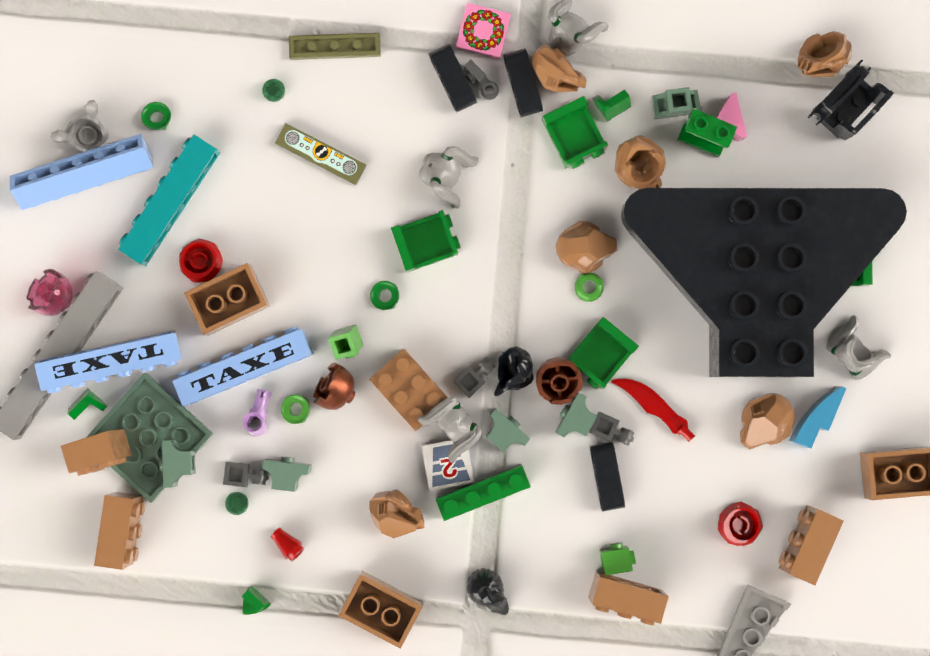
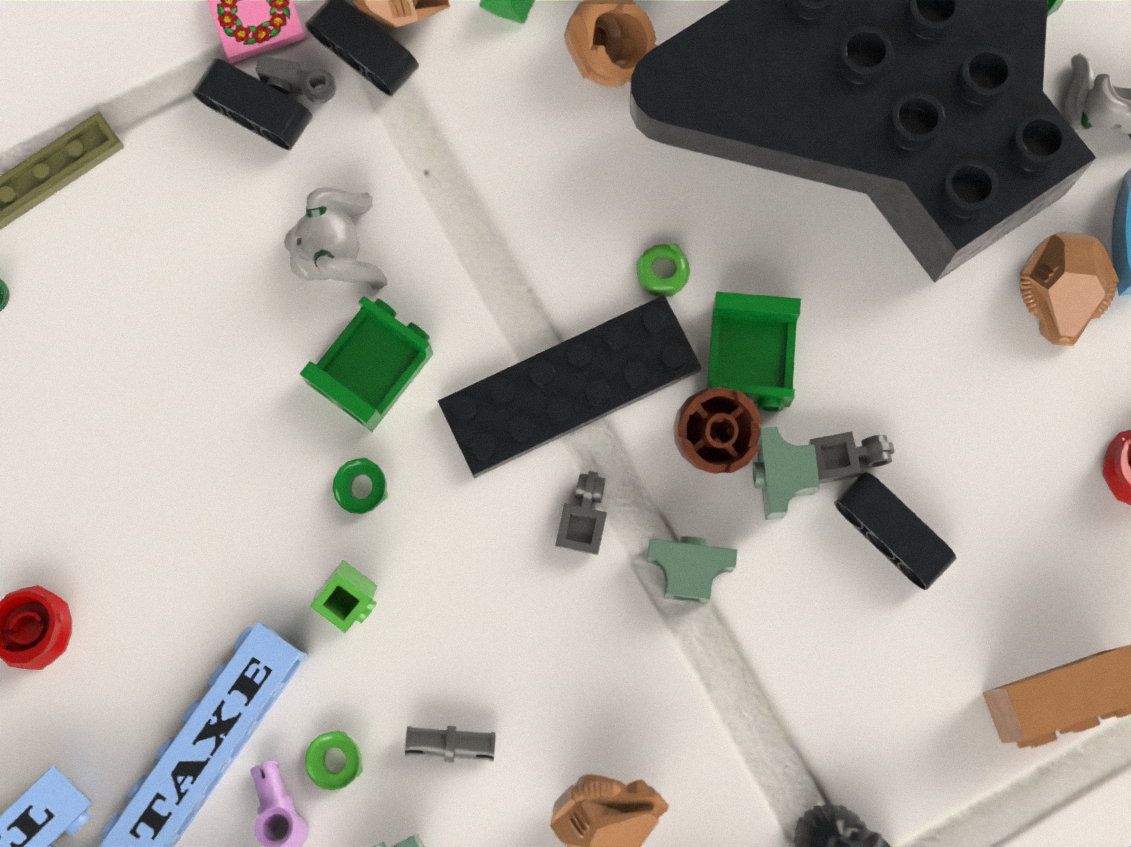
camera: 30 degrees left, 10 degrees down
(227, 299) = (107, 657): medium nougat brick -> none
(320, 154) = (121, 341): tile -> none
(335, 388) = (375, 682): copper cylinder -> none
(350, 436) = (450, 743): none -> dark grey pin
(408, 388) = (495, 603): medium nougat brick -> none
(441, 471) = (635, 682): tile -> none
(456, 424) = (604, 605): light grey hair -> none
(482, 492) = (722, 687): green brick -> none
(509, 312) = (569, 386): none -> black plate
(514, 370) = (637, 463): black hair -> none
(574, 133) = (485, 66): green panel -> none
(584, 247) = (615, 213): medium nougat helmet -> none
(617, 559) = (1003, 649): bright green brick -> none
(655, 405) = (887, 376): red sword -> none

